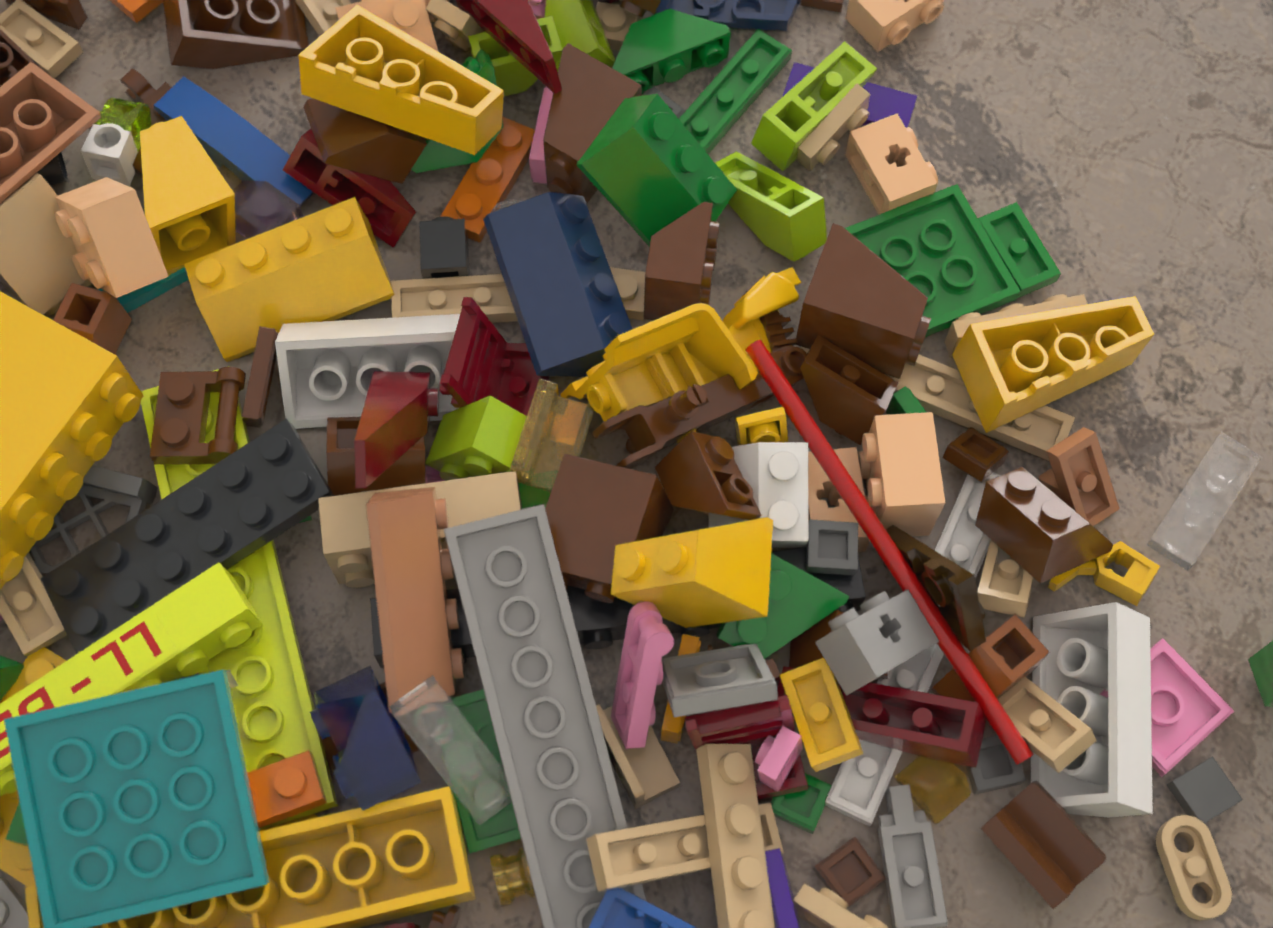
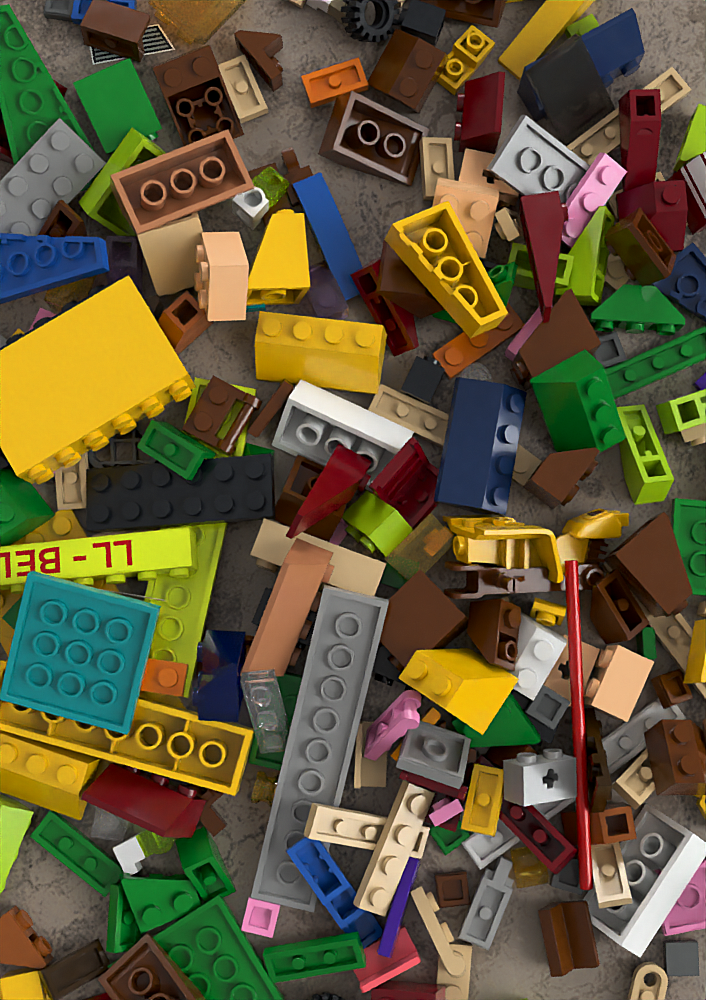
camera: 30 degrees right, 15 degrees up
(148, 480) = (174, 448): none -> green panel

